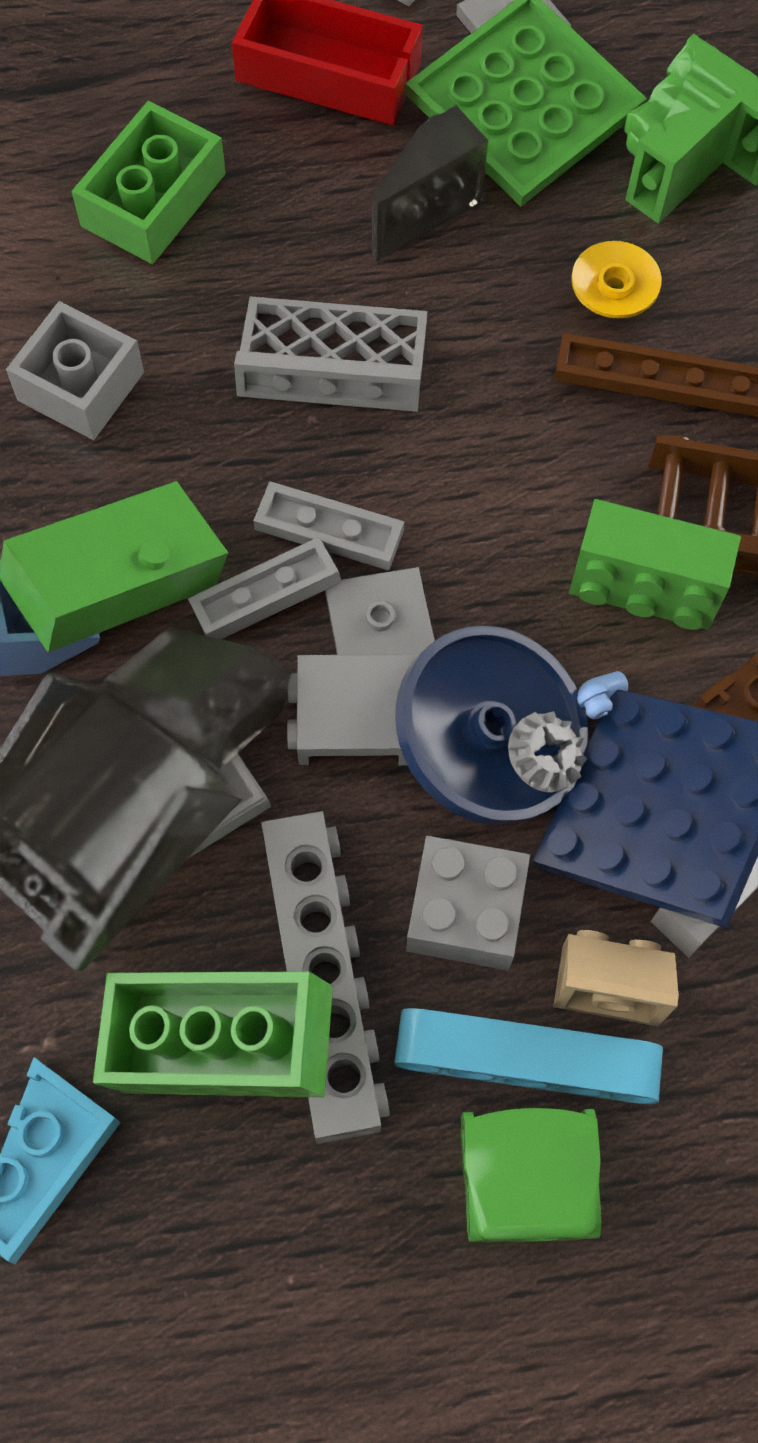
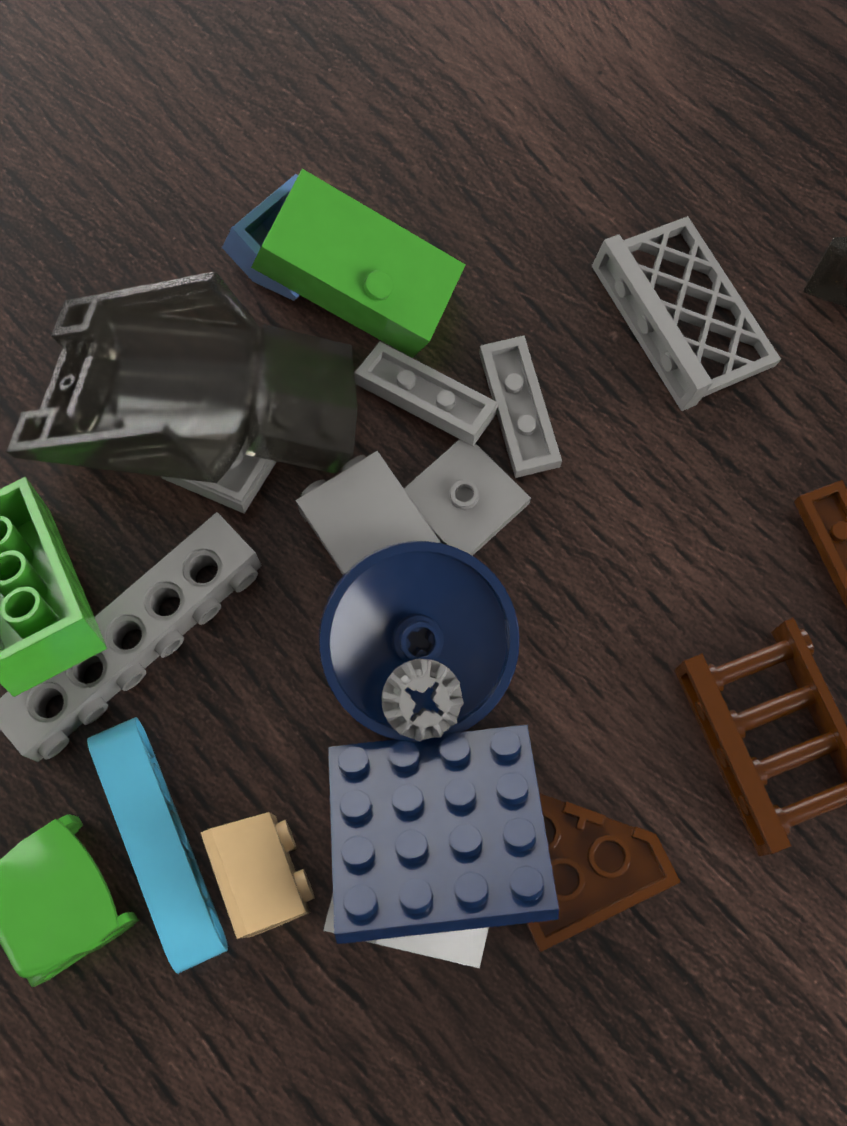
camera: 60 degrees right, 5 degrees up
(76, 370) = (516, 133): light grey brick -> none
(149, 182) = (730, 73): bright green brick -> none
(468, 903) = (252, 714): light grey brick -> none
(596, 693) = (513, 709): light blue arm -> none
(654, 565) = (658, 687): bright green brick -> none

